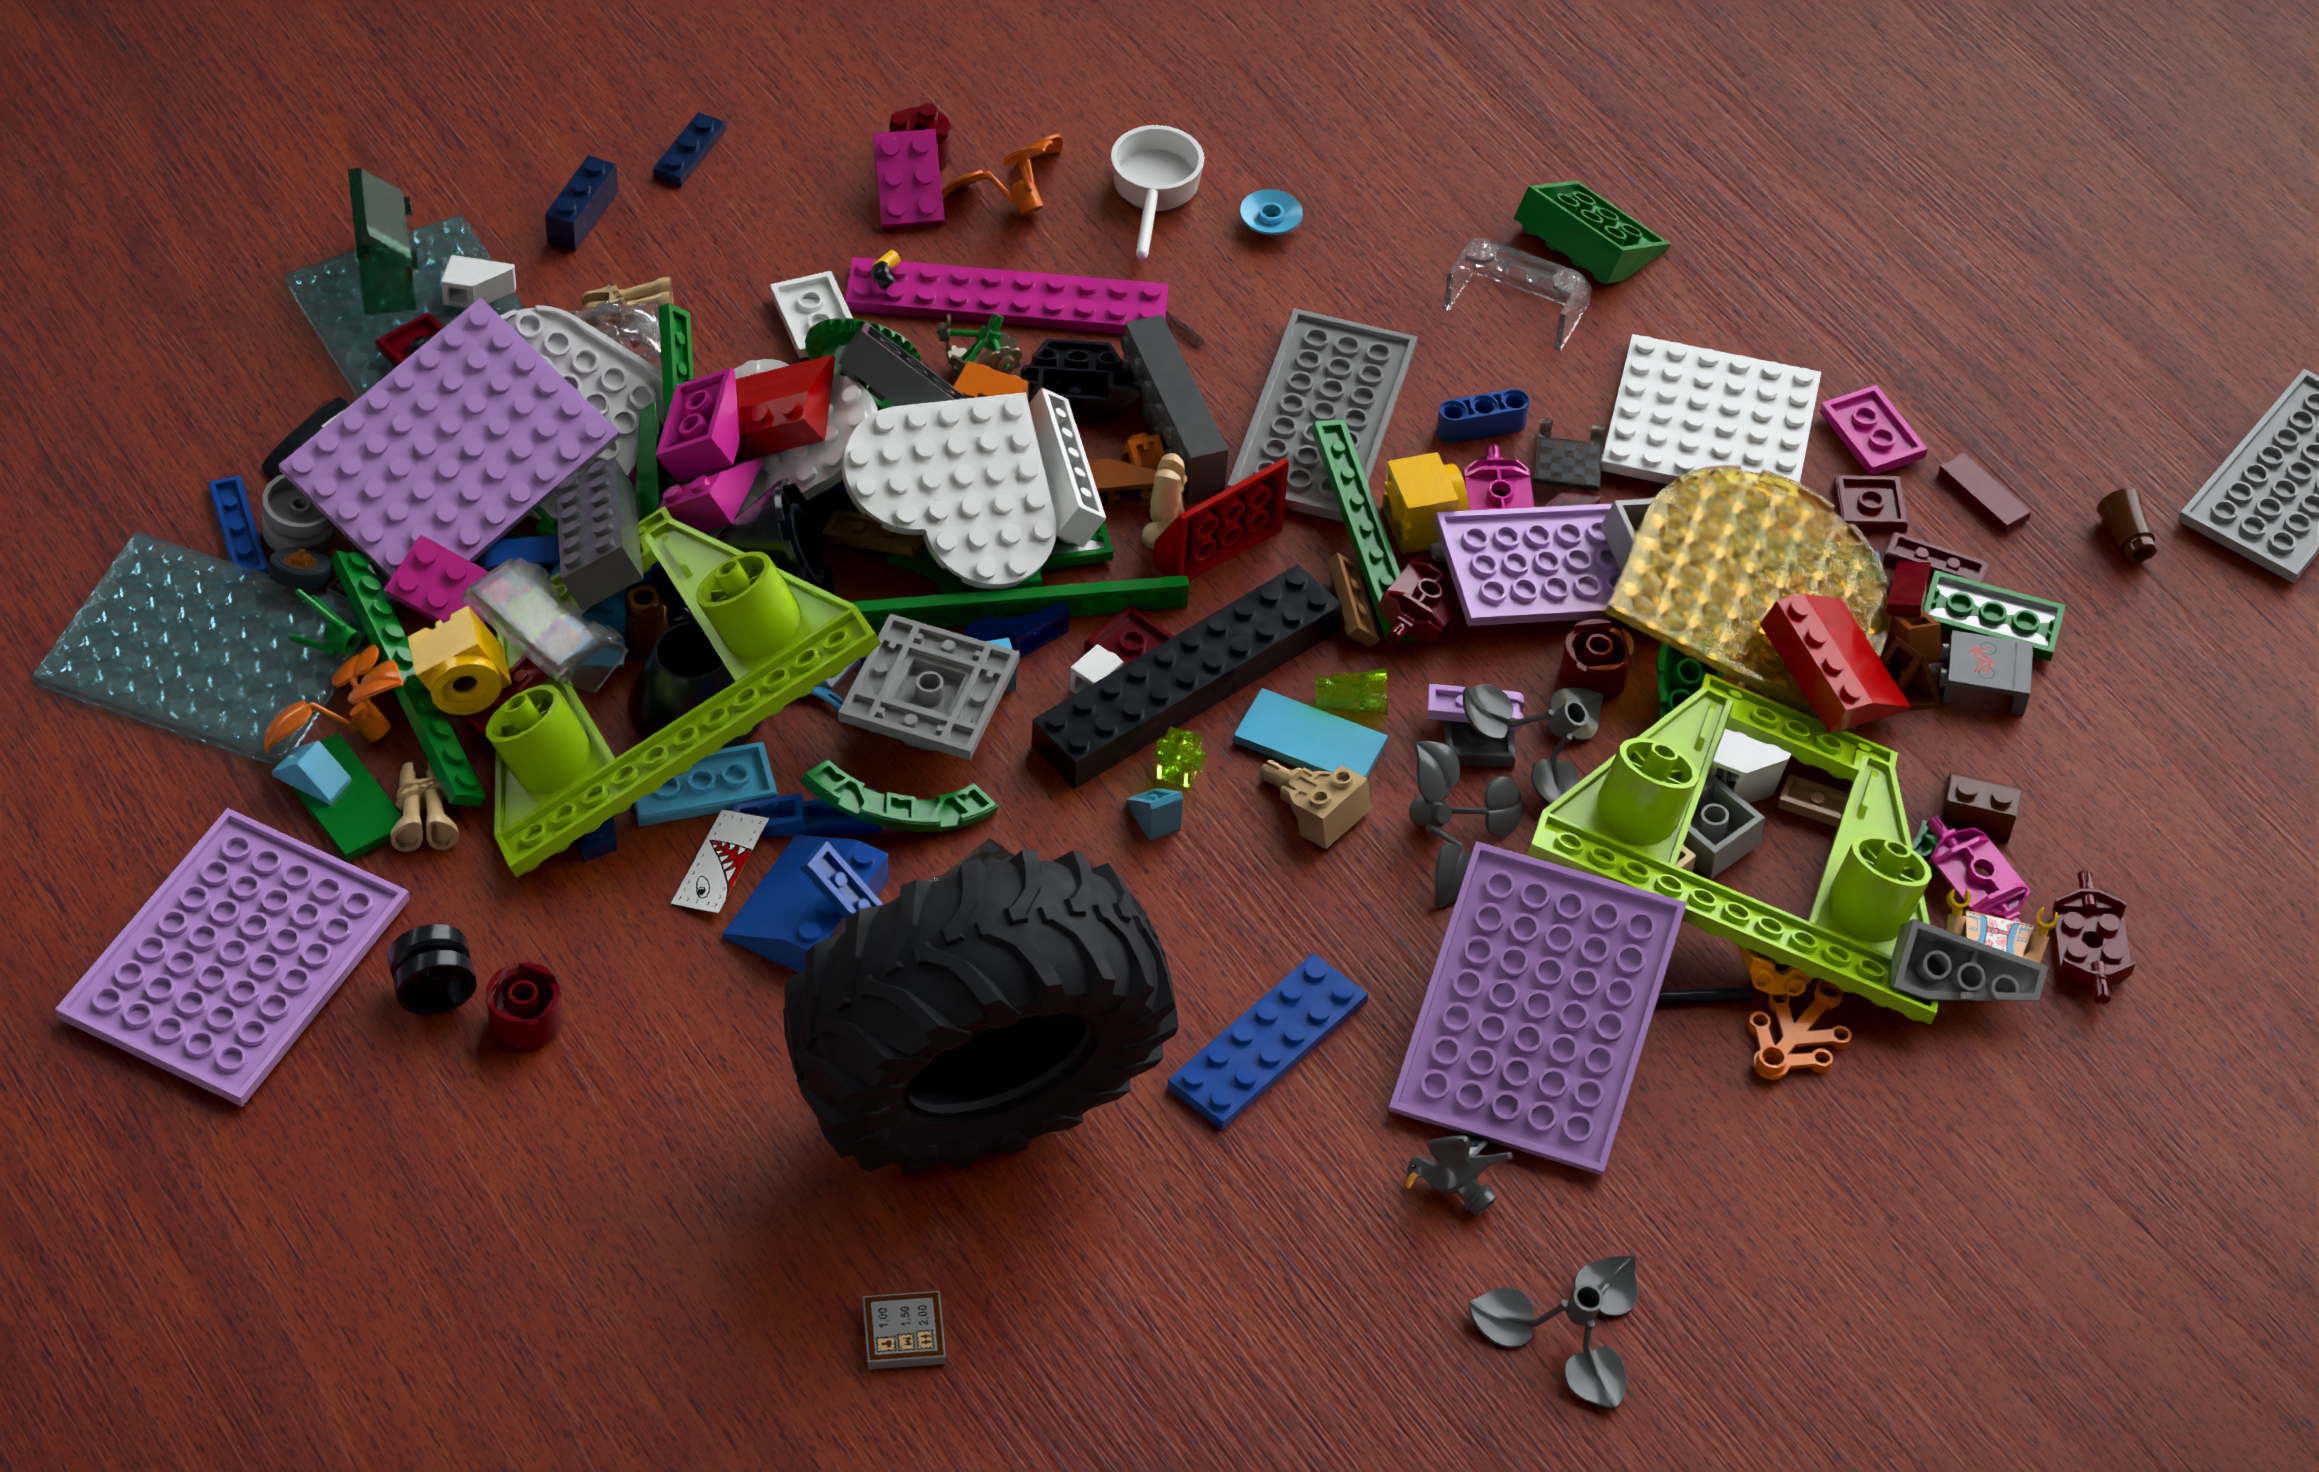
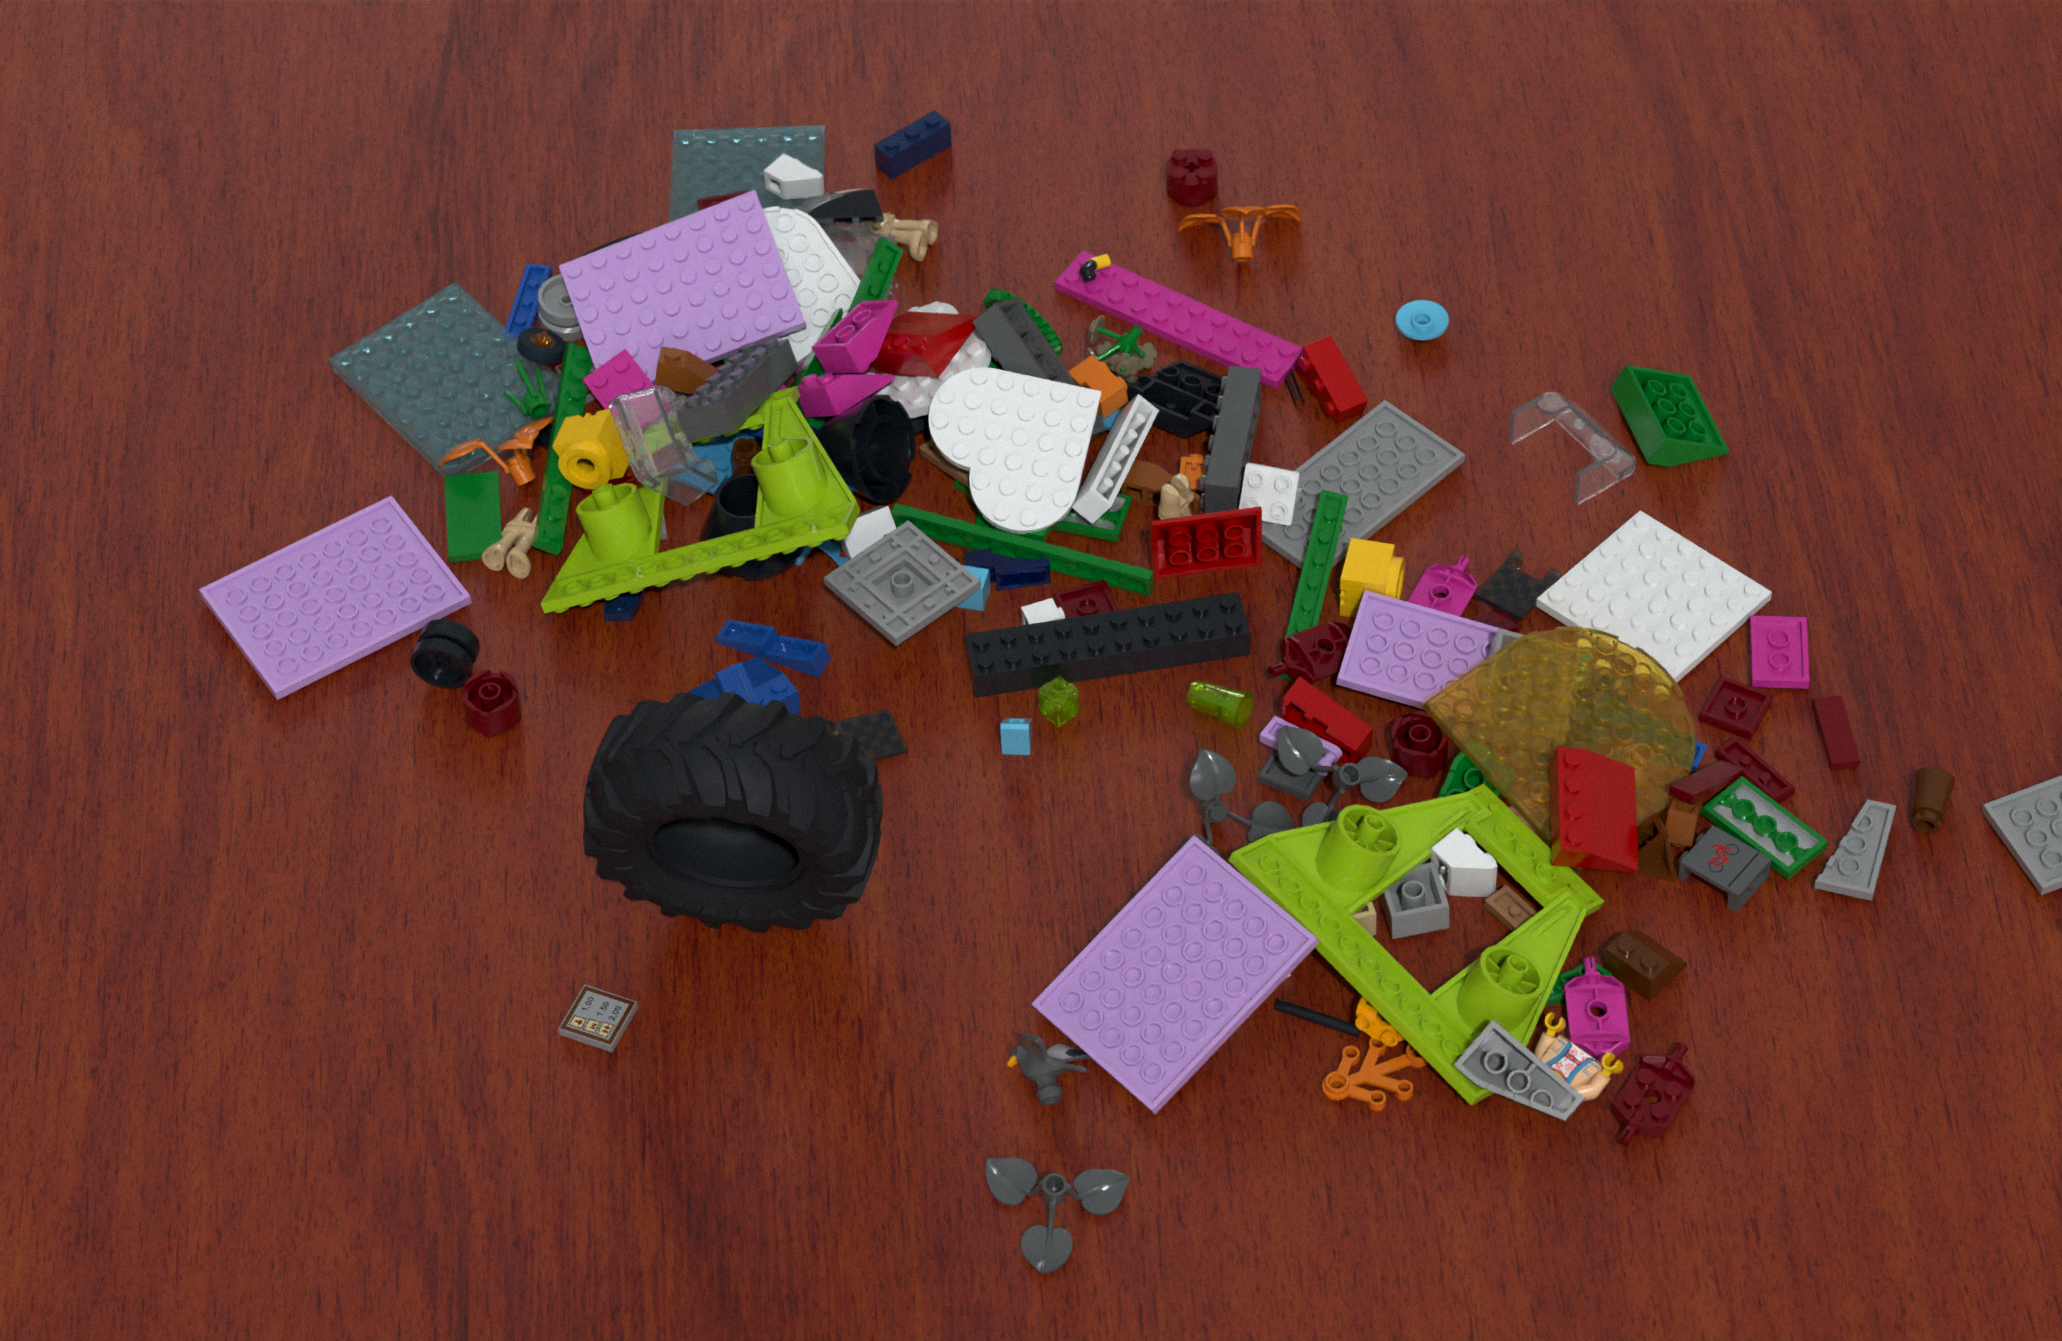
camera: 35 degrees right, 0 degrees up
(313, 772) = (461, 492): medium azure slope -> none
(382, 243) = (731, 121): clear green windscreen -> none
(508, 535) = (682, 370): none -> dark orange slope
(576, 287) = (844, 206): none -> black wedge
(689, 149) = (1022, 129): dark blue plate -> none
(711, 785) = (719, 597): medium azure tile -> none
(720, 861) = (692, 654): white sticker -> none
(807, 302) = (1029, 278): white plate -> none
(895, 810) = (833, 666): green tile -> none
(908, 178) = (1158, 203): dark pink plate -> none
(1156, 172) = (1351, 258): white piece -> none
(1224, 306) = (1330, 380): none -> red wedge
(1256, 443) = (1271, 489): none -> white bracket
(1267, 1041) = (983, 925): blue plate -> none
(1308, 736) = (1167, 724): medium azure tile -> none
(1321, 800) = (1139, 772): tan brick -> none
(1354, 599) = (1269, 635): medium nougat plate -> none
(1474, 662) = (1327, 719): none -> red wedge
(1482, 415) = (1472, 532): blue beam -> none
(2101, 608) = (1860, 853): none -> light grey wing

